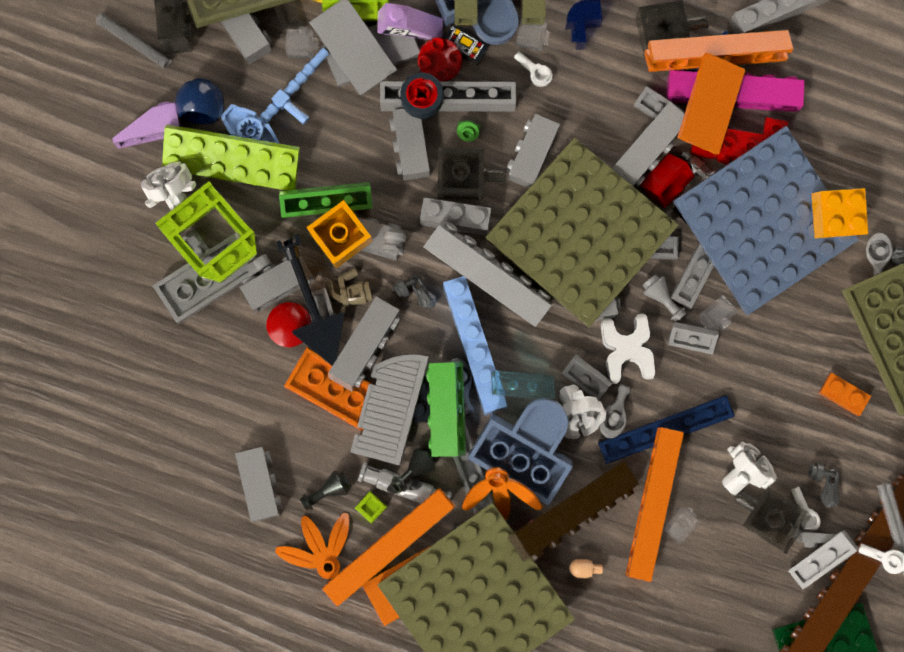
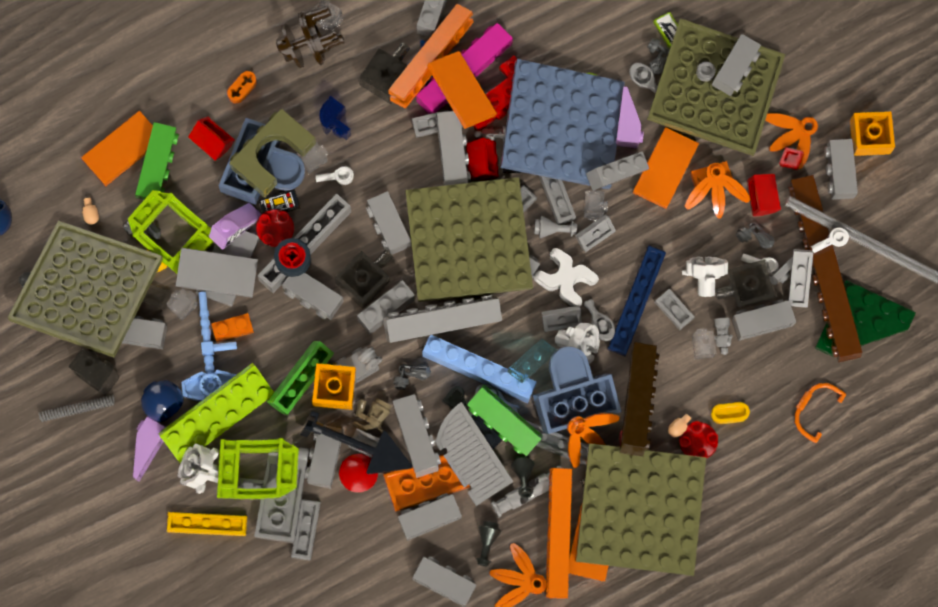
camera: 50 degrees left, 5 degrees down
(131, 237) = (206, 524): none -> yellow tile
(199, 324) = (306, 530): none -> light grey tile
(304, 419) = (429, 516): none -> light grey brick
(319, 104) = (232, 328): none -> orange plate
(370, 507) = (522, 524): lime tile -> none
(431, 347) = (454, 397): none -> pearl dark grey tile
(468, 130) = (337, 251): bright green plate -> none
(588, 598) = (699, 440): none -> red dish
(639, 604) = (730, 413): none -> yellow tile
(654, 504) = (677, 348): orange piece -> none
(688, 470) = (674, 309): none -> light grey plate
(703, 538) = (723, 339): none -> light grey piece
(754, 559) = (763, 319): none -> light grey brick
(767, 306) = (617, 171): none -> light grey brick
(813, 347) = (666, 168): none -> orange tile
(822, 278) = (629, 125): none -> lavender slope
(832, 415) = (718, 195): none -> orange plant
(839, 213) = (600, 77): light orange brick -> none
(871, 457) = (763, 194): none -> red brick

